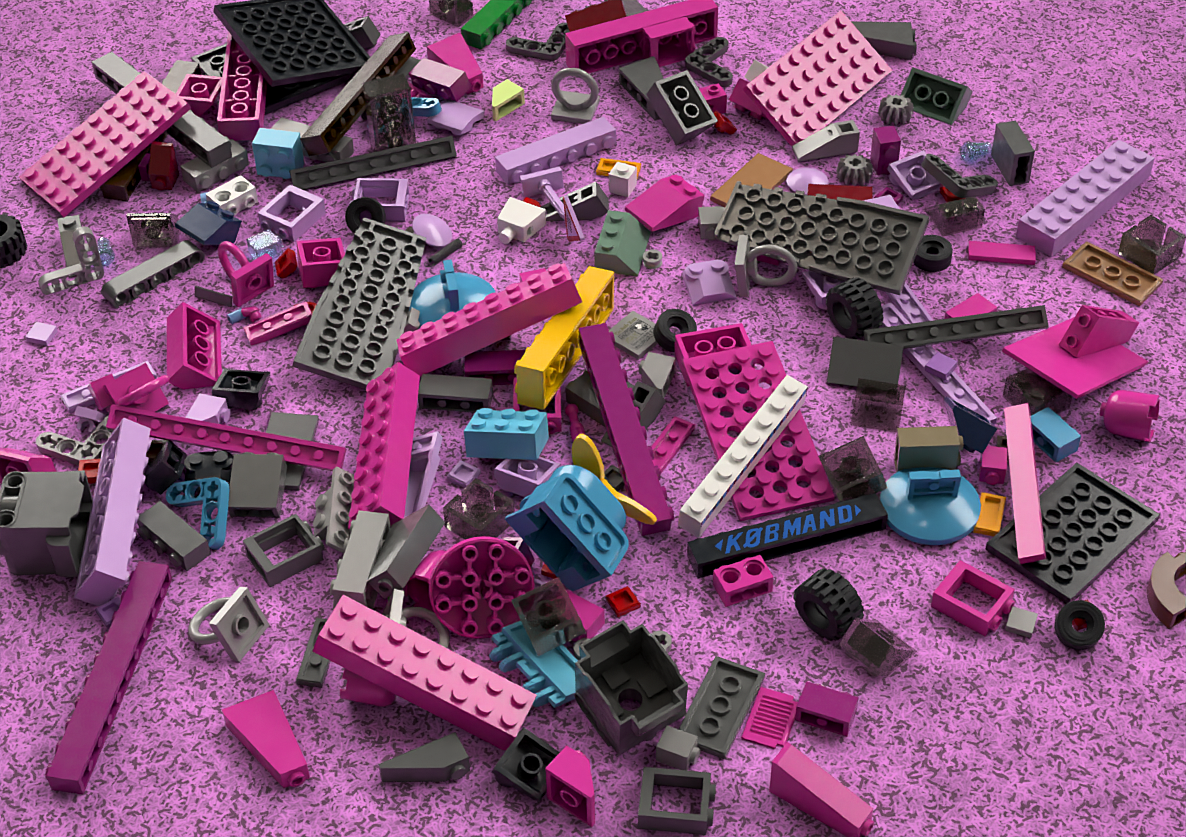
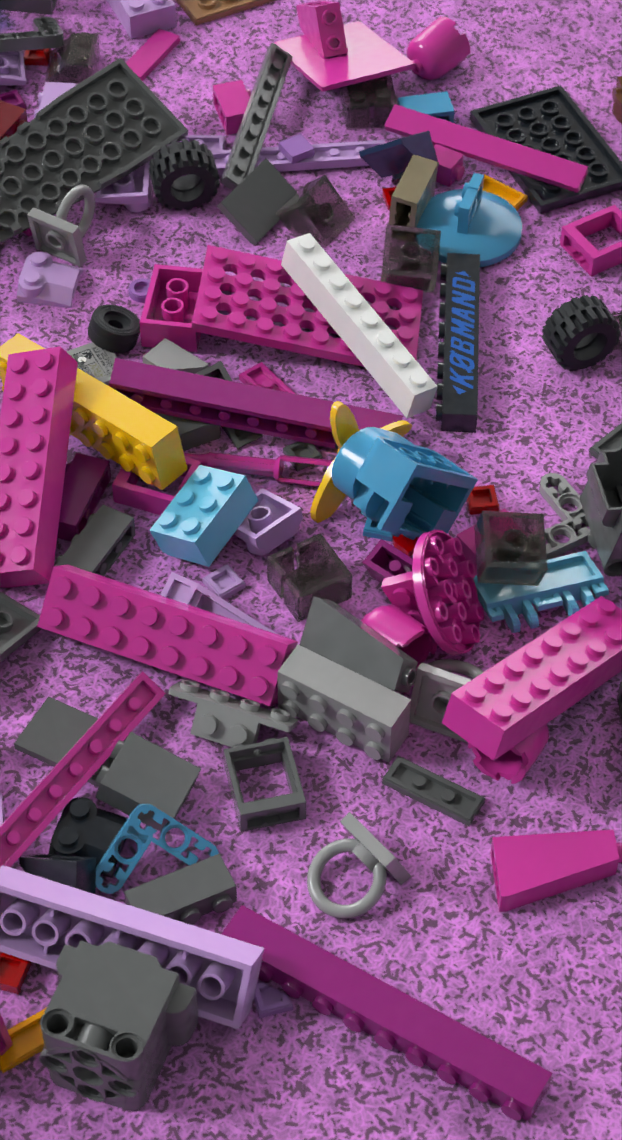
camera: 70 degrees left, 5 degrees up
(742, 580) = (504, 392): dark pink brick -> none

